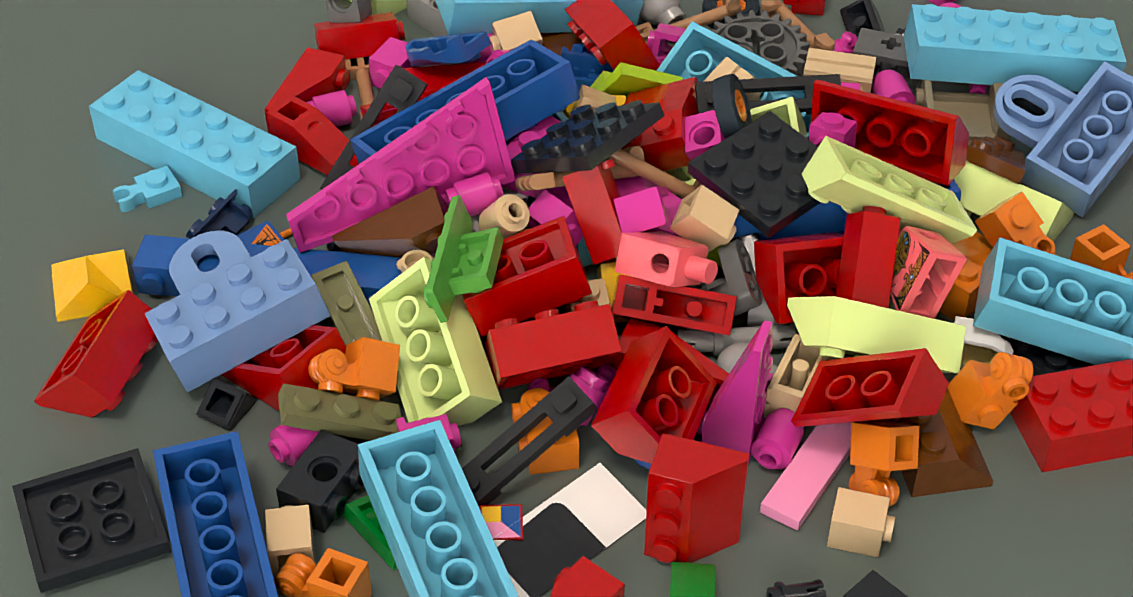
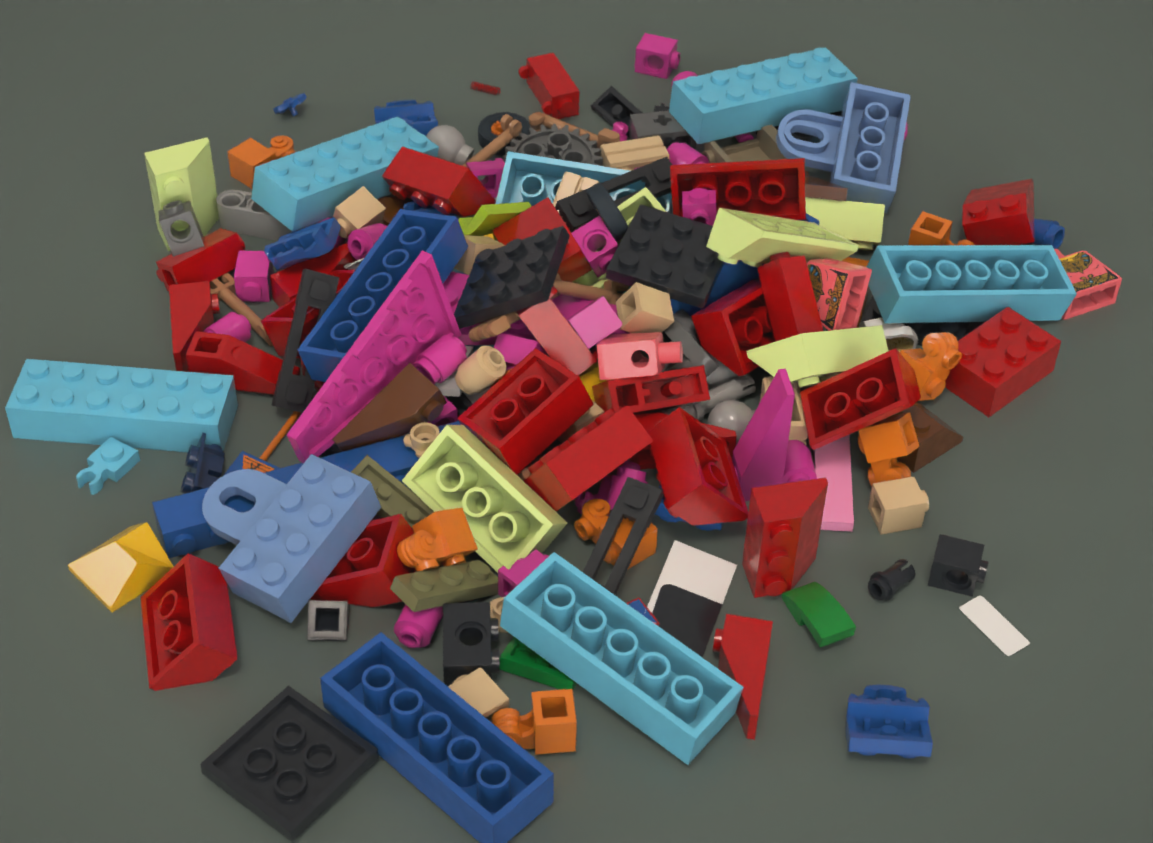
camera: 30 degrees left, 0 degrees up
(462, 260) = (485, 414): bright green bracket -> none
(1015, 221) = (865, 230): orange brick -> none

